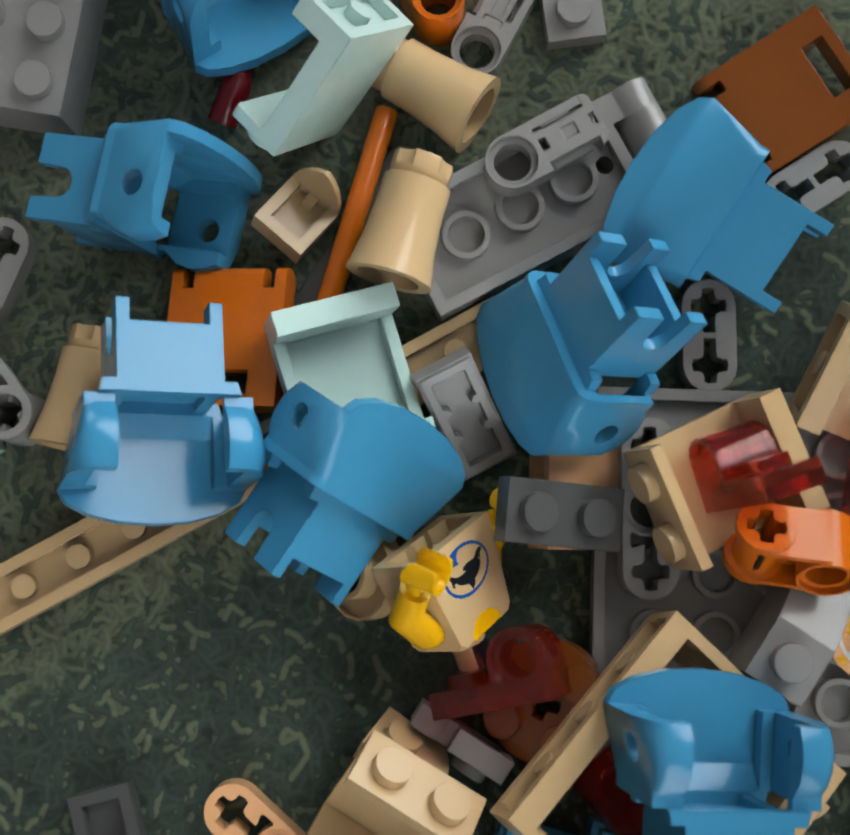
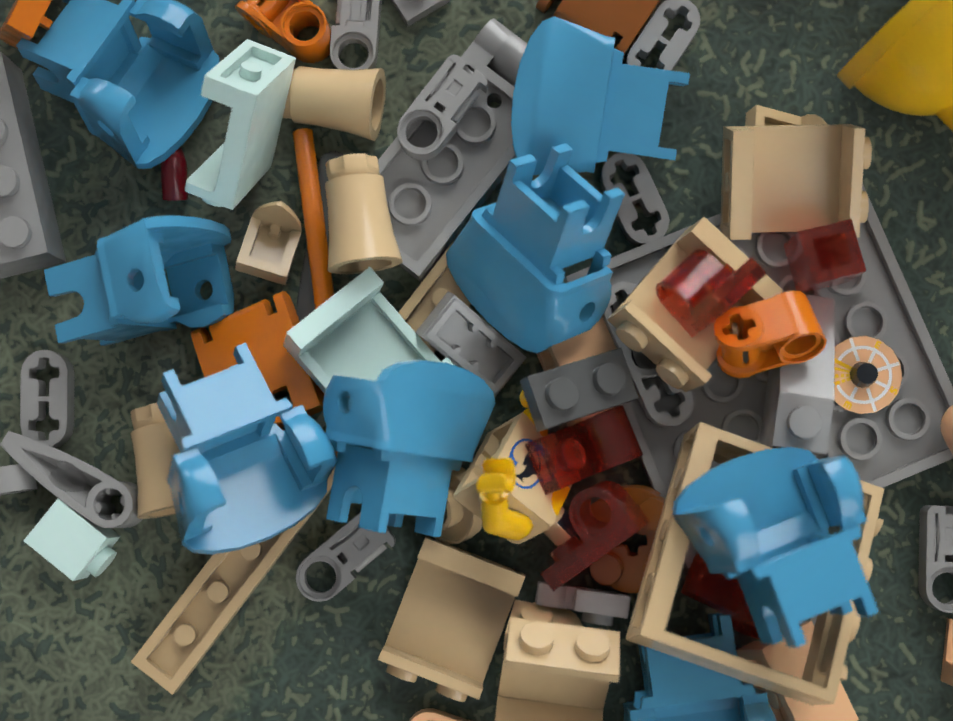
camera: 20 degrees left, 0 degrees up
(231, 575) = (344, 551): none -> light grey piece
(311, 698) = (450, 619): none -> tan panel
(535, 581) = (584, 449): none -> clear red plate

